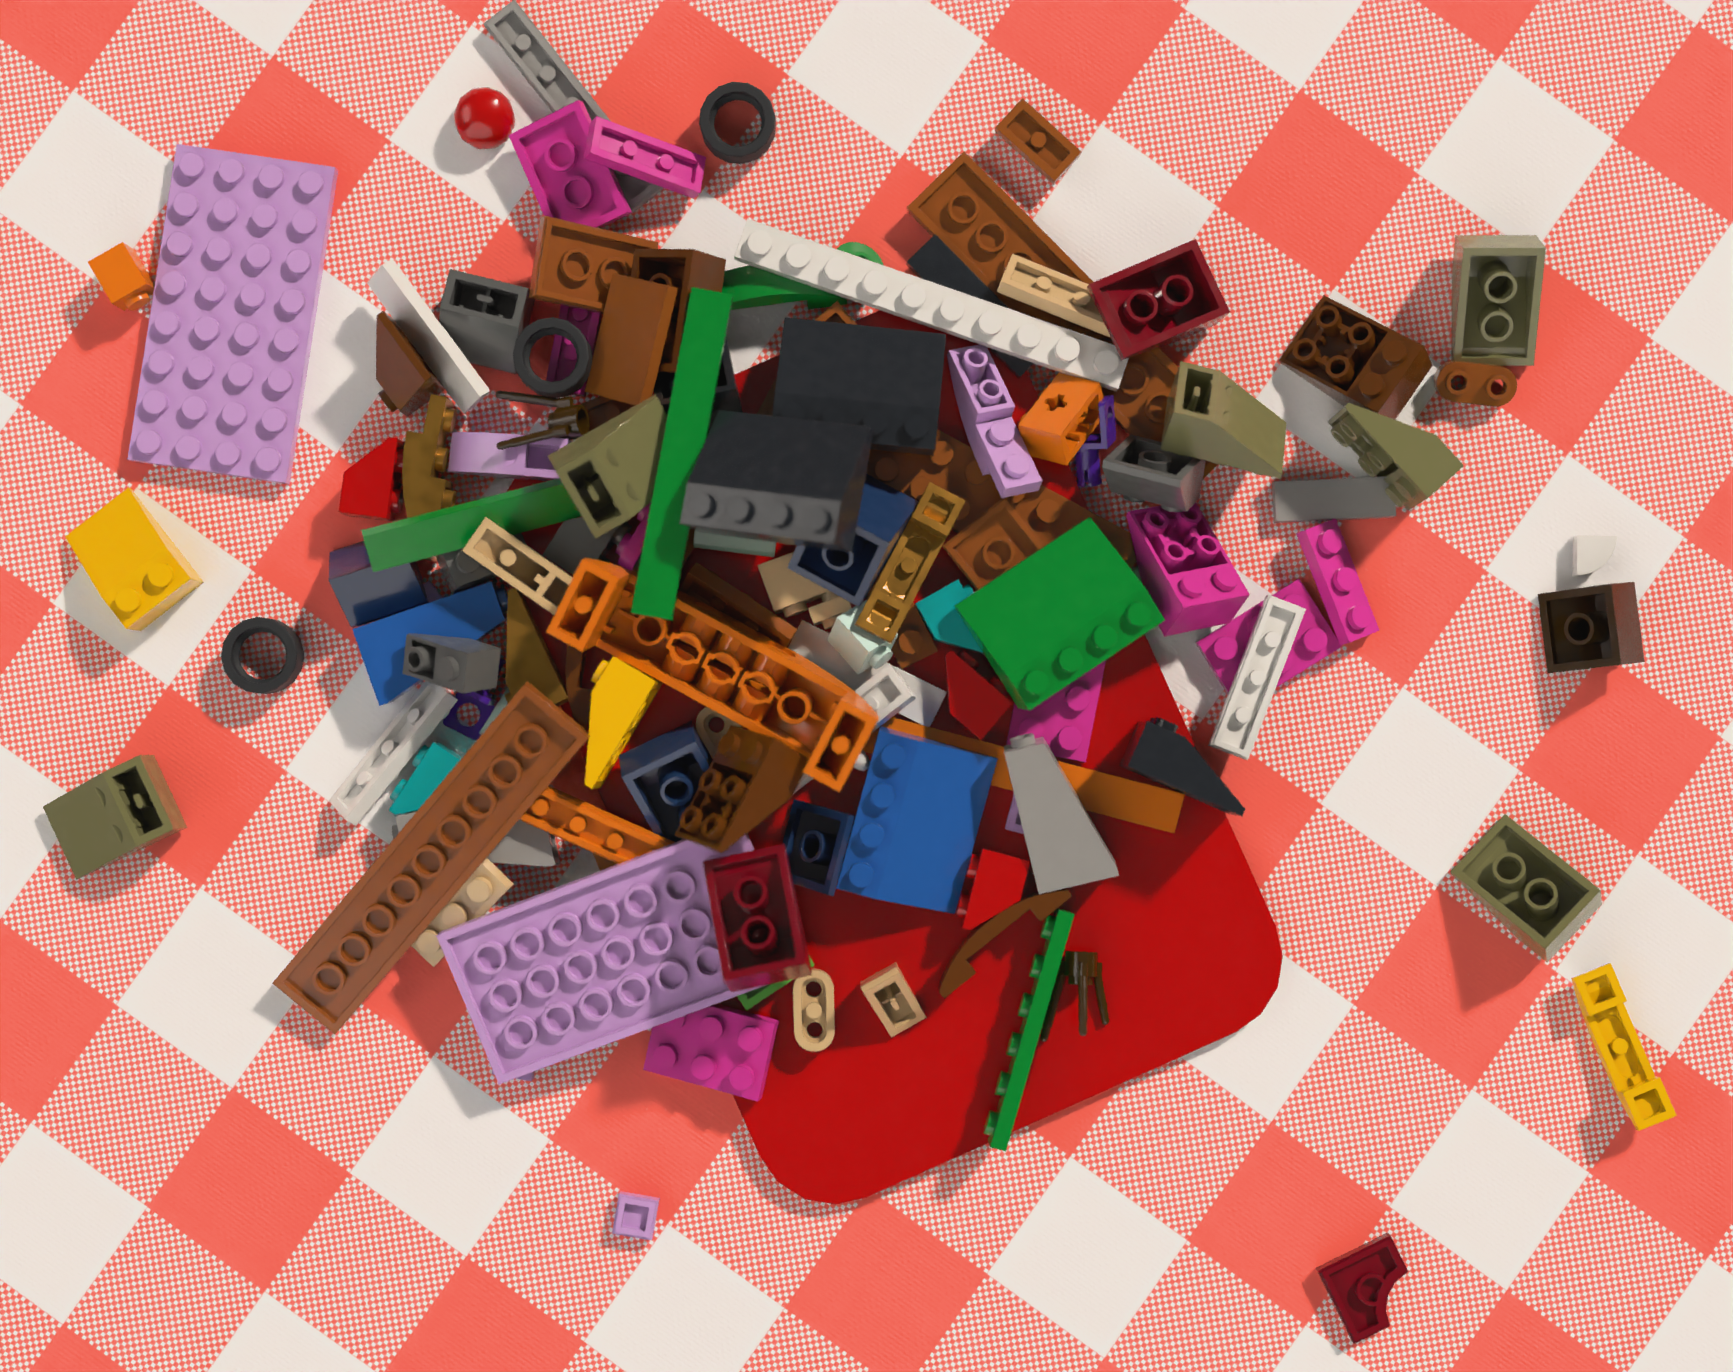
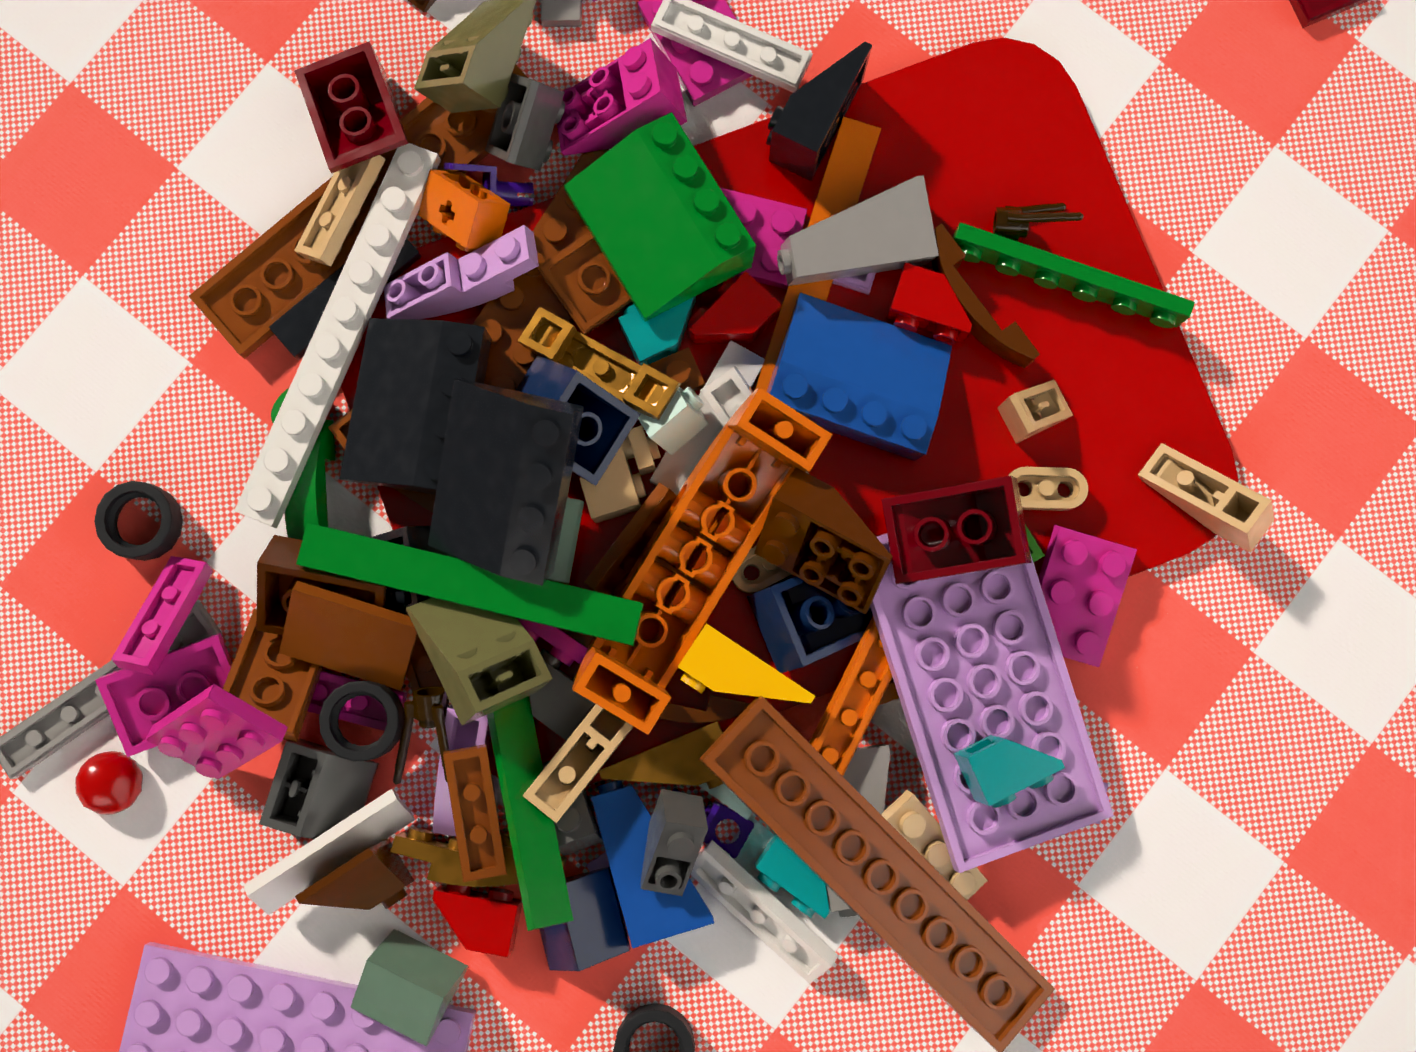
camera: 85 degrees left, 5 degrees down
(307, 420) = (408, 986): none -> sand green slope
(469, 472) = (474, 813): none -> dark orange plate
(531, 221) = (216, 732): none -> dark pink plate
(535, 971) = (1001, 768): none -> teal slope
(635, 1215) = (1245, 683): lavender tile -> none
(814, 1170) = (1209, 497): none -> tan slope
(816, 845) = (879, 470): dark blue slope -> none
(1037, 141) = (186, 225): dark orange plate -> none

